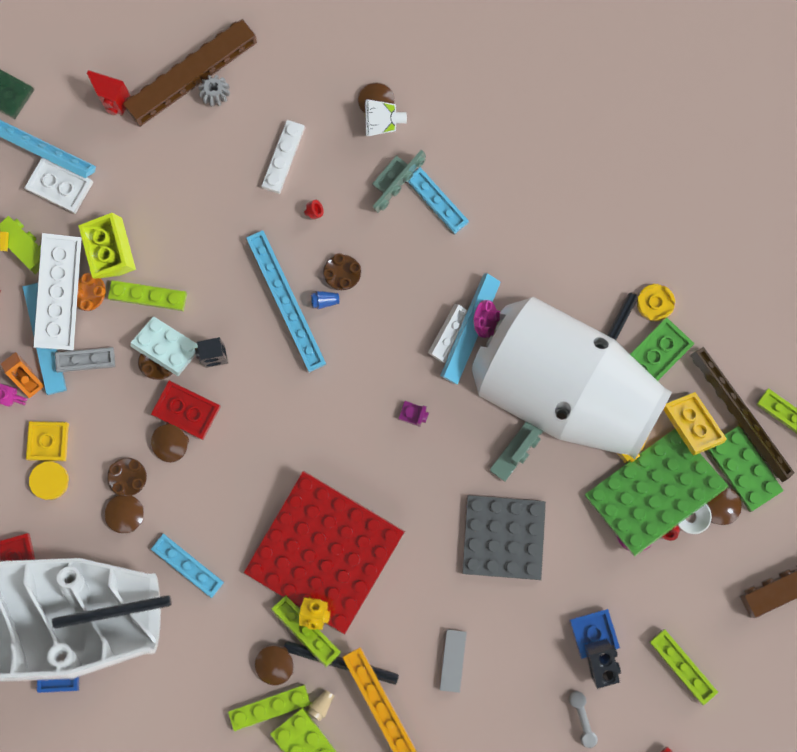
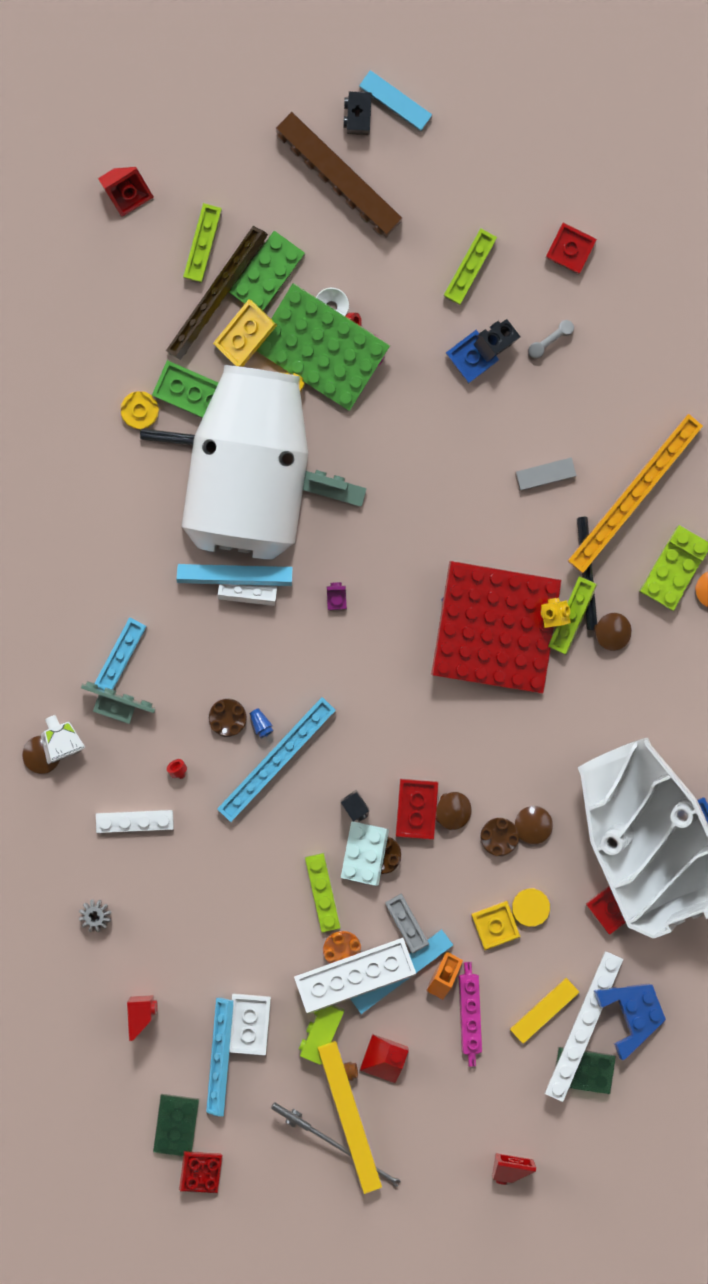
camera: 110 degrees left, 10 degrees up
(107, 246) = (292, 949): neon yellow slope -> none
(110, 612) = (626, 792): black axle -> none
(187, 565) = (556, 747): medium azure tile -> none
(190, 72) = (85, 946): reddish brown brick -> none
(269, 707) = (651, 621): lime plate -> none
(320, 706) = (631, 575): tan cone -> none
(486, 319) = (221, 563): dark pink dish -> none
(504, 537) = (417, 469): dark grey plate -> none
(725, 507) = (311, 278): reddish brown dish -> none

